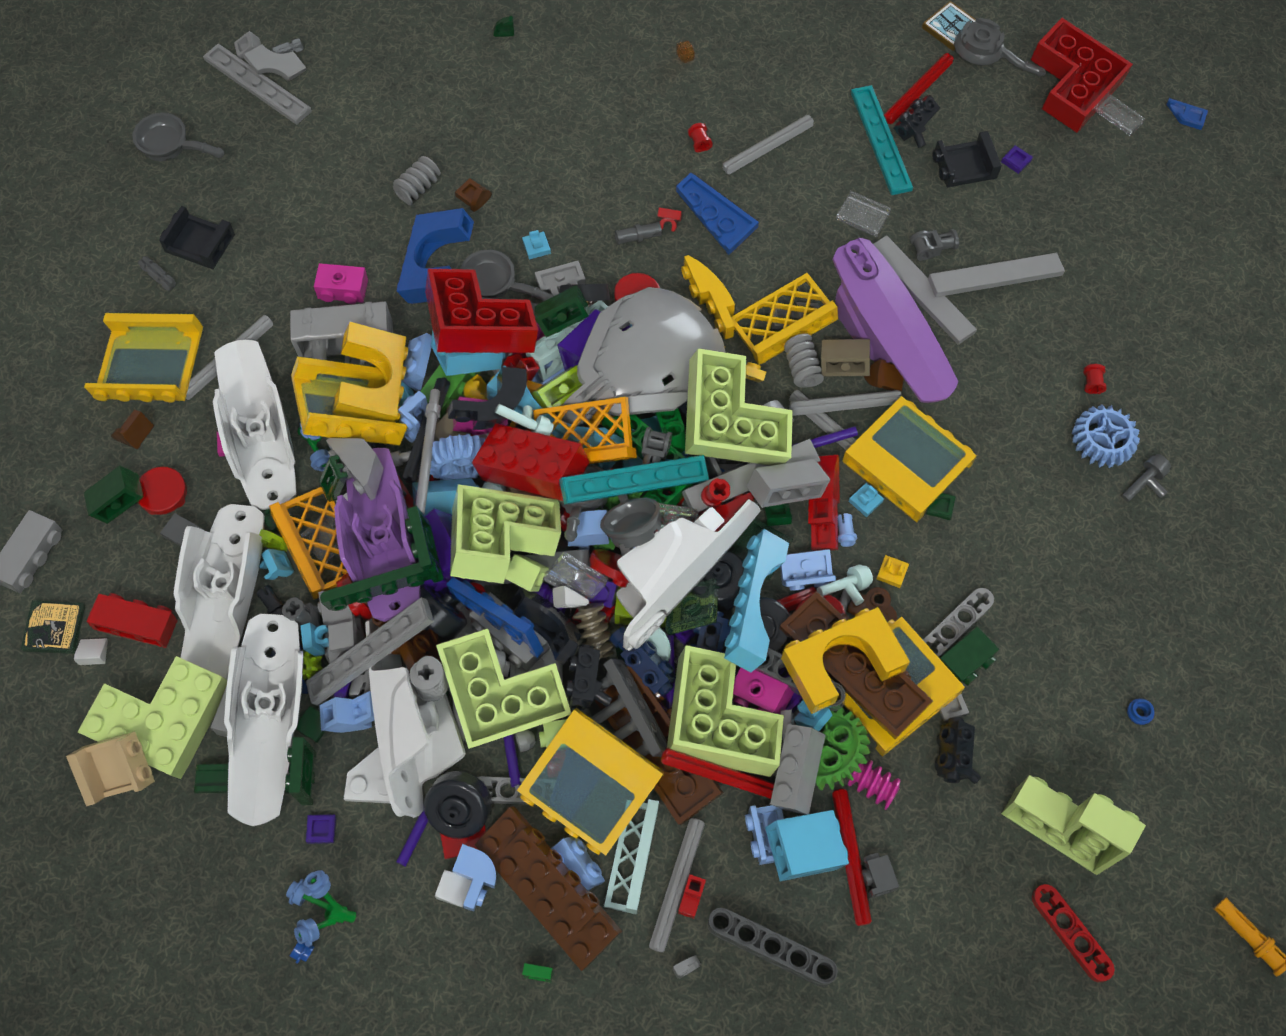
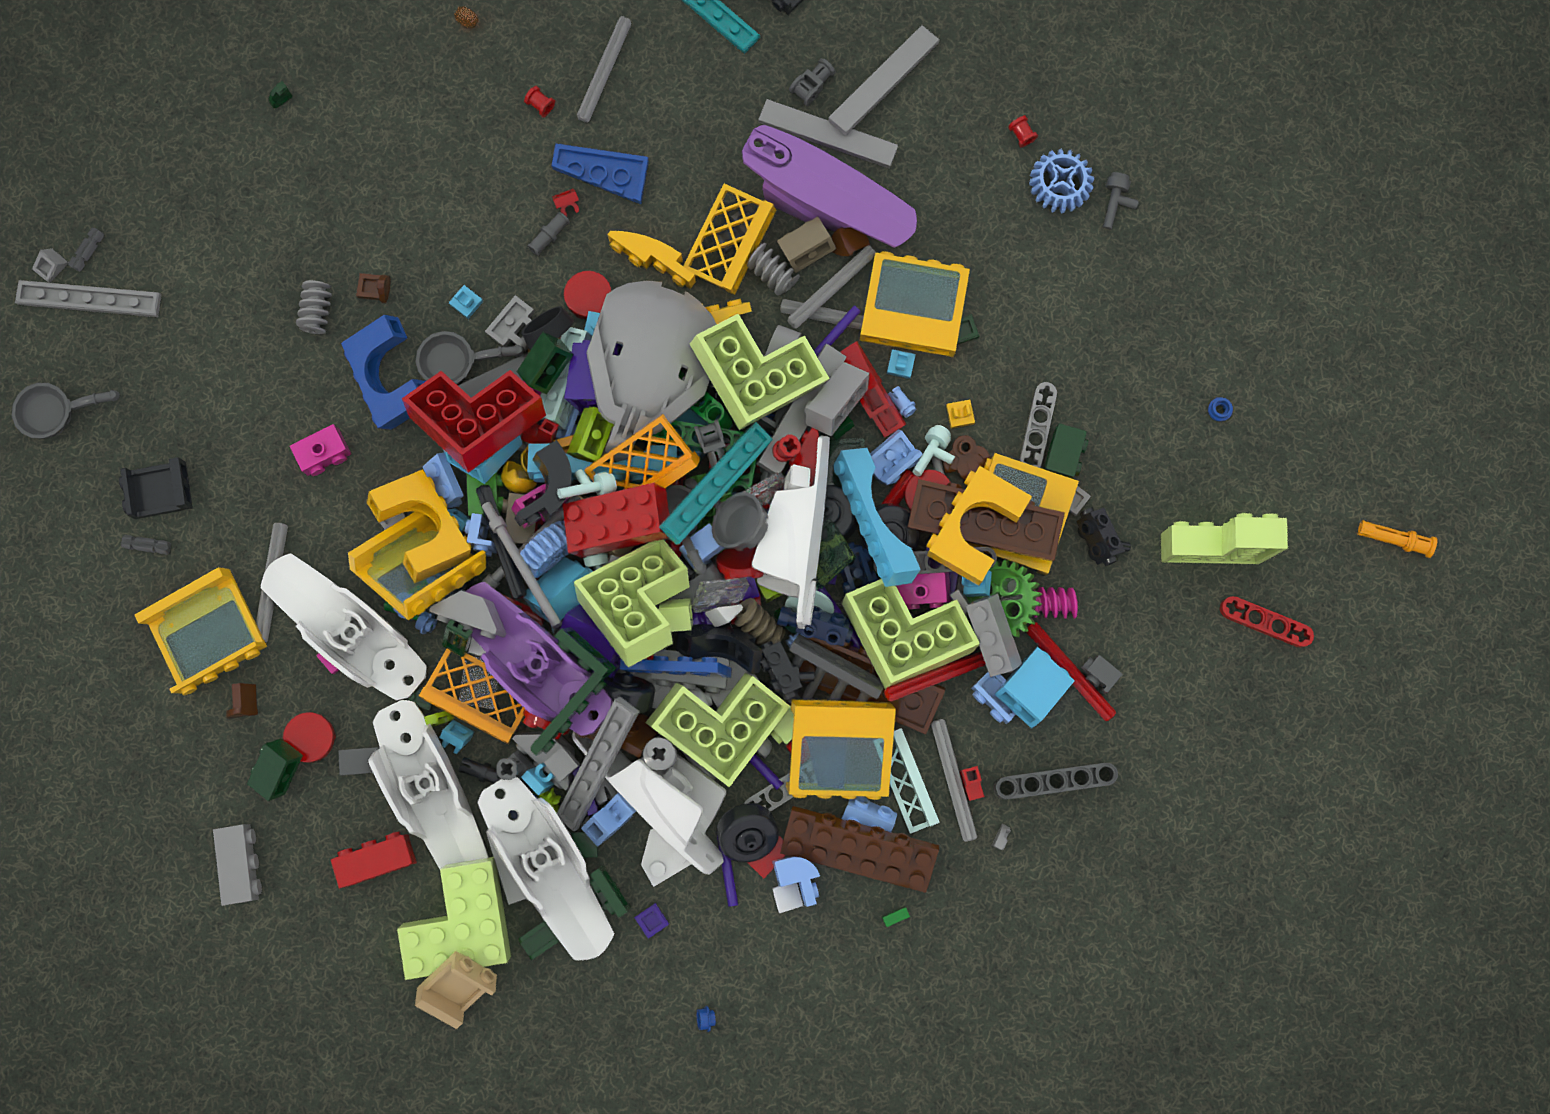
camera: 30 degrees left, 15 degrees up
(53, 627) = (310, 908): tile -> none
(91, 651) = (358, 906): white slope -> none
(266, 61) = (81, 272): light grey tile -> none
(310, 889) = (691, 971): medium blue plant -> none
(321, 330) = (345, 503): light grey piece -> none
(863, 213) = (733, 89): clear plate -> none

